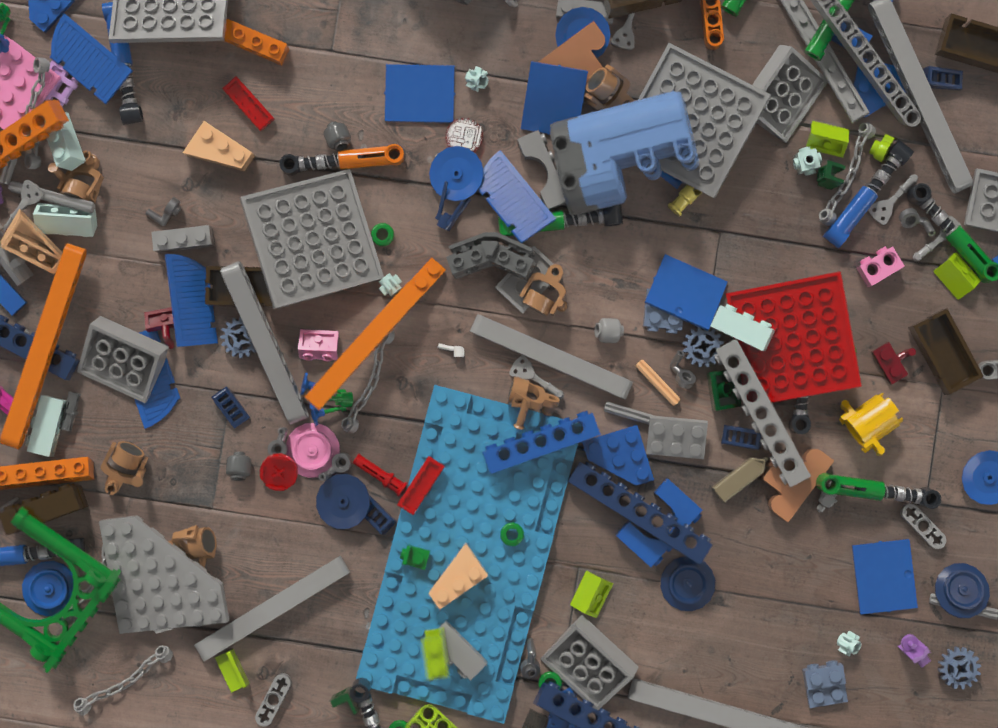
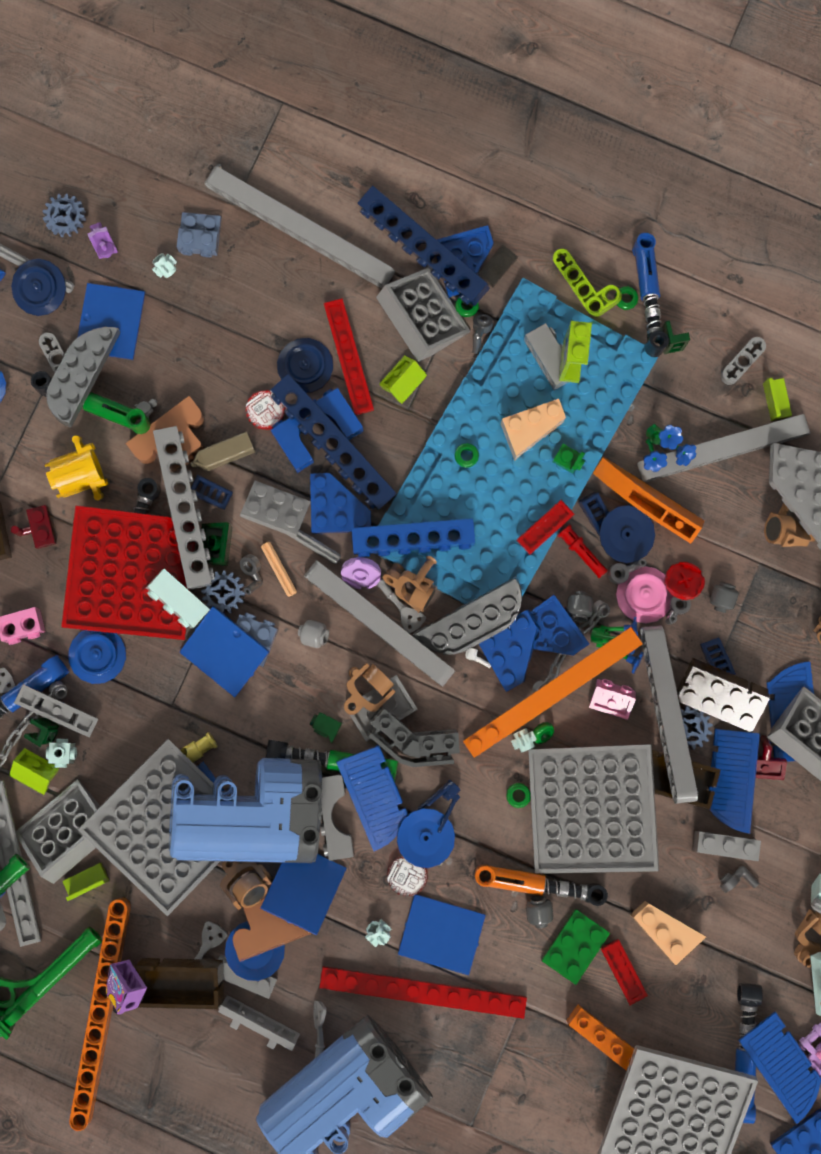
camera: 165 degrees left, 5 degrees down
(219, 373) = (722, 695): none -> piece
(297, 114) = (575, 946): none -> green plate
(326, 598) = (667, 438): none -> blue plant
(329, 538) = (649, 500): none -> orange slope
(369, 421) = (580, 606): none -> dark grey head
(374, 297) = (543, 732): none -> green piece
(393, 391) = (557, 629): none -> blue plate
(422, 38) = (423, 992): none -> red plate
(423, 365) = (512, 650): none -> blue plate
(464, 380) = (473, 621): none -> dark grey plate
(574, 249) = (325, 726): none -> dark green window
(580, 398) = (360, 573): none -> lavender tile
(649, 602) = (348, 357): none -> red plate
(716, 527) = (263, 411): none -> tile
(751, 54) = (85, 881): none -> lime panel
(801, 257) = (97, 656): none -> blue piece
(823, 197) = (56, 710): none -> light grey hinge
(897, 515) = (79, 372): none -> plate

